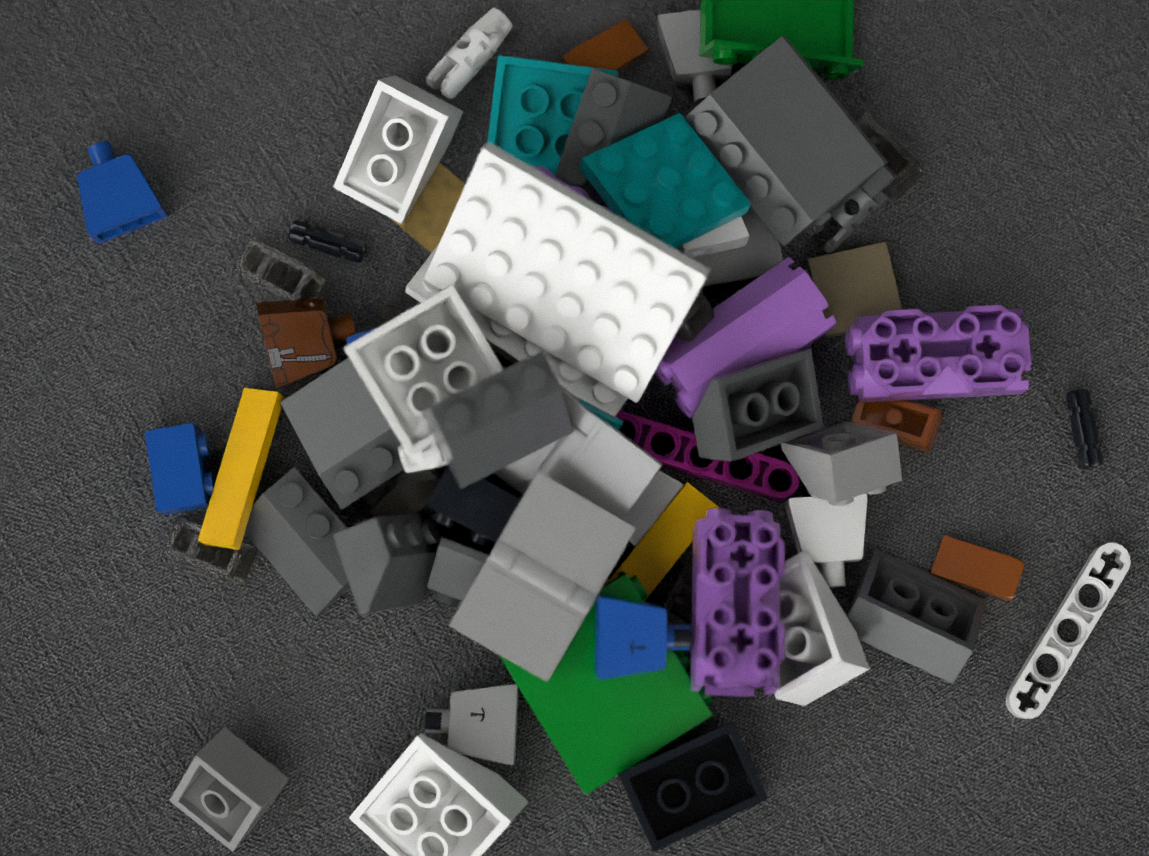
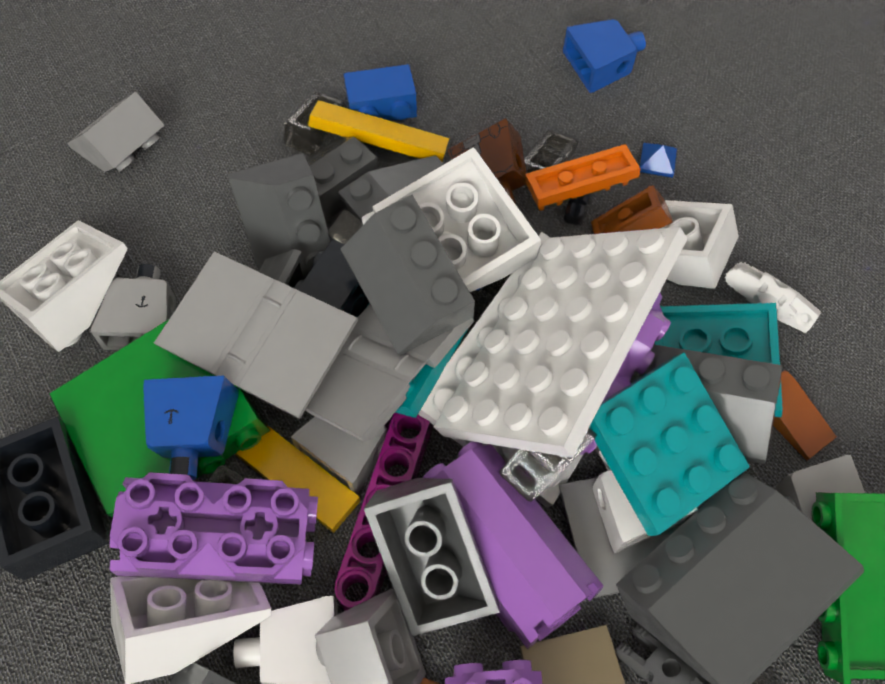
camera: 85 degrees right, 20 degrees down
(277, 148) = (658, 159): none -> blue slope
(323, 236) = (582, 176): none -> orange plate
(374, 188) = (639, 212): none -> dark orange slope

